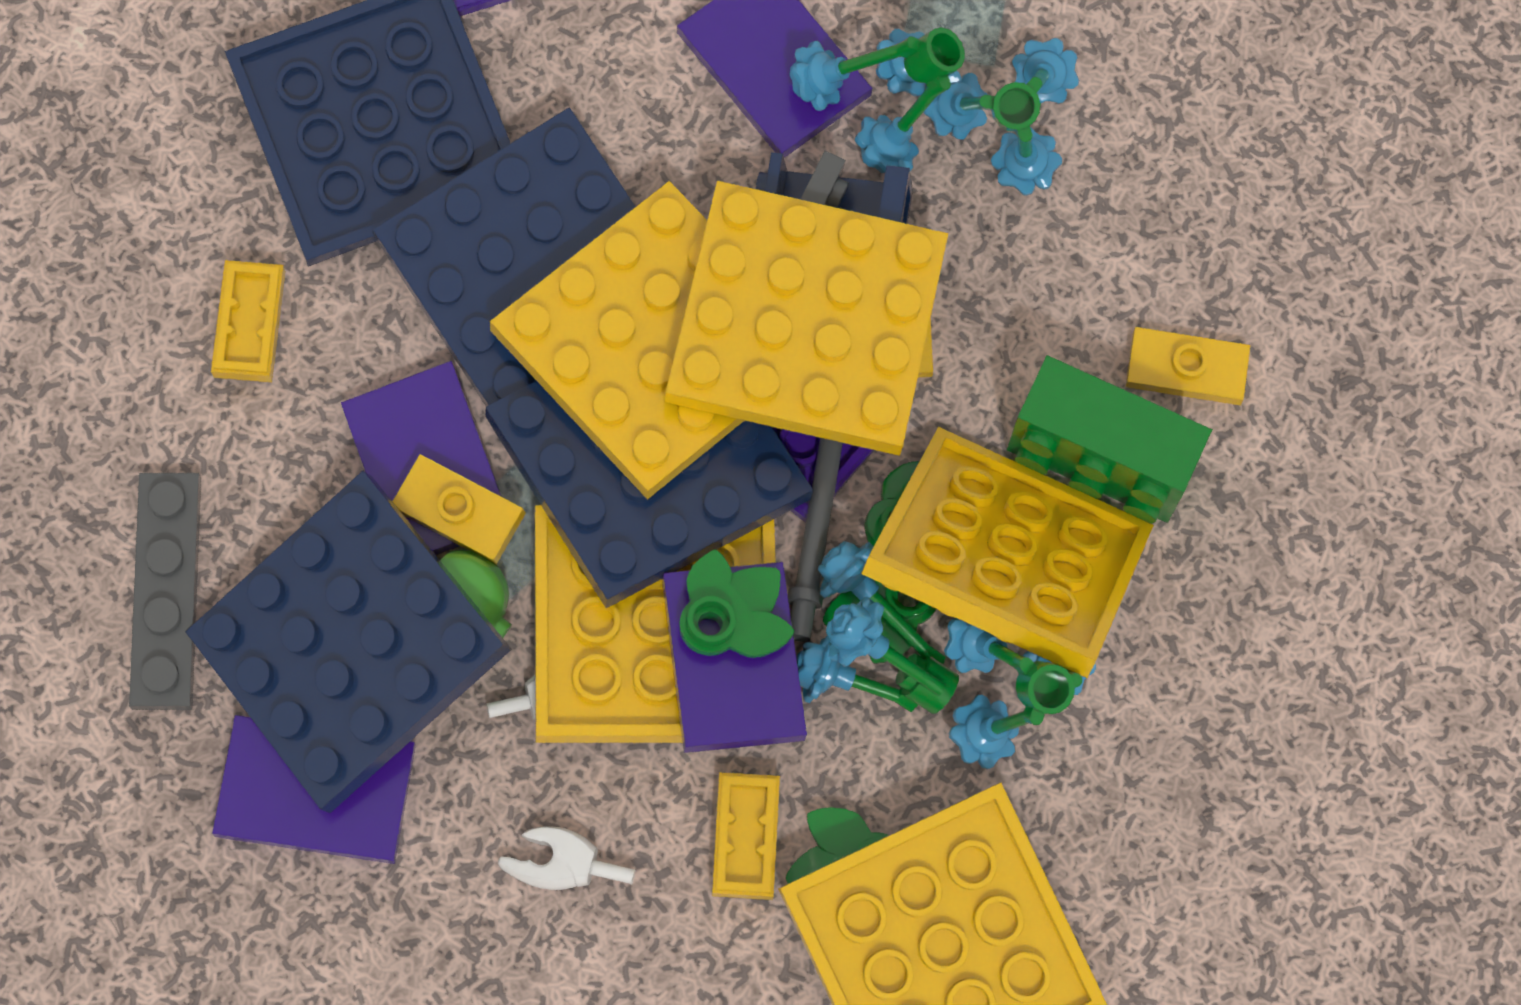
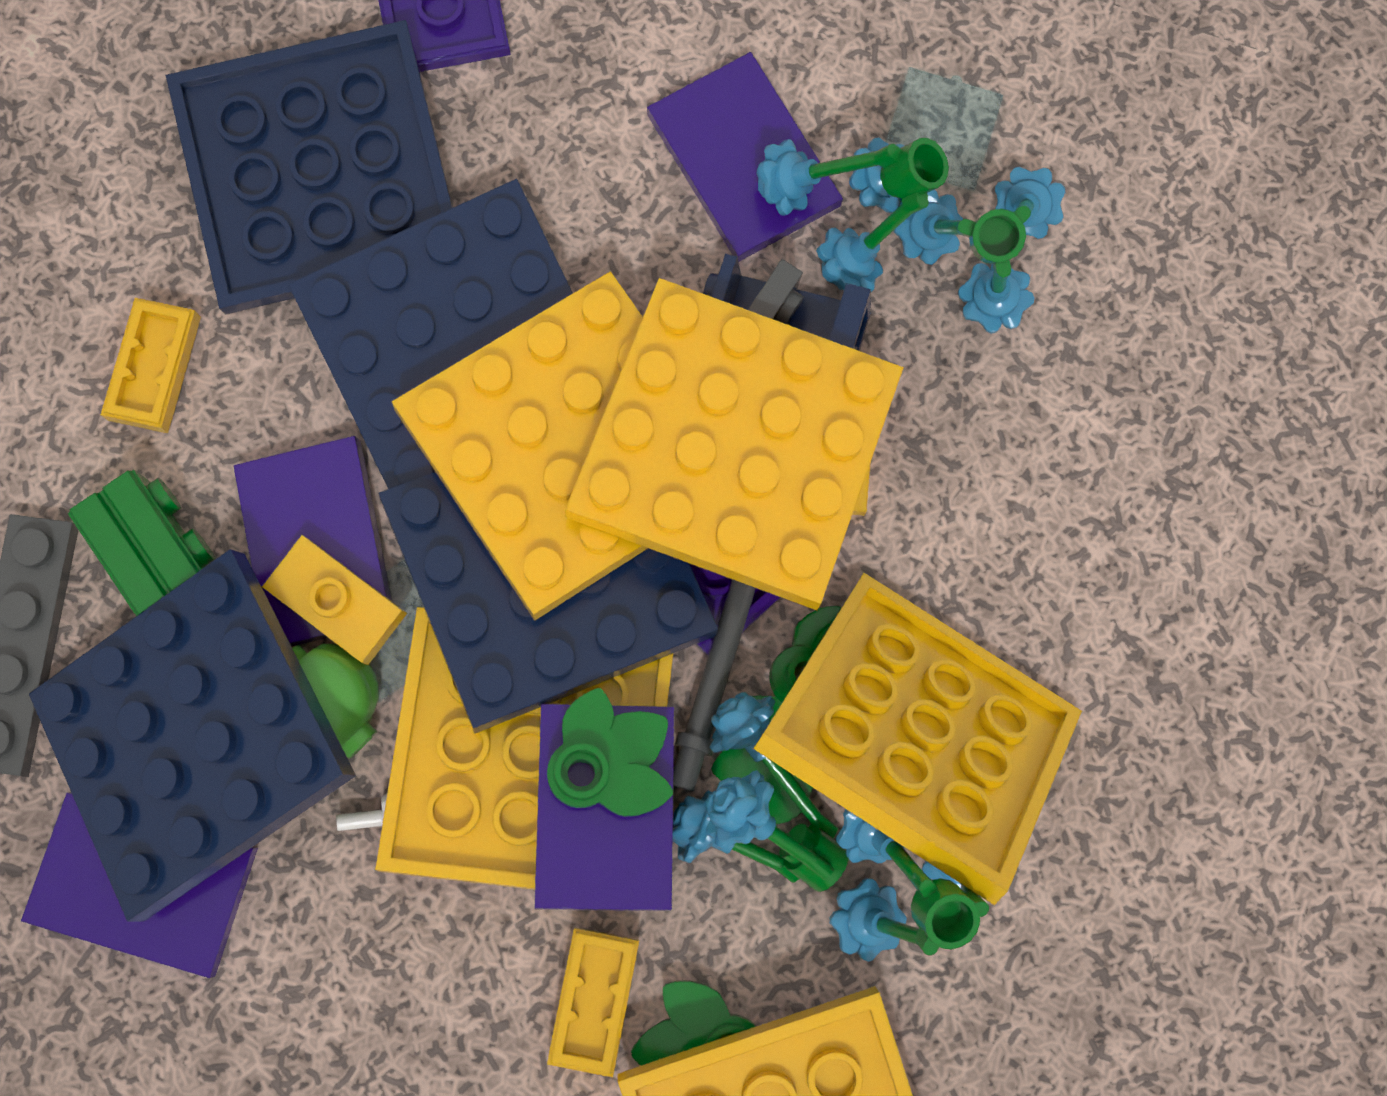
camera: 10 degrees right, 5 degrees up
(267, 479) = (139, 538): none -> green brick
(570, 865) = (401, 1005): white hand -> none
(1107, 441) = (1049, 618): green brick -> none
(1188, 366) = (1140, 539): yellow plate -> none

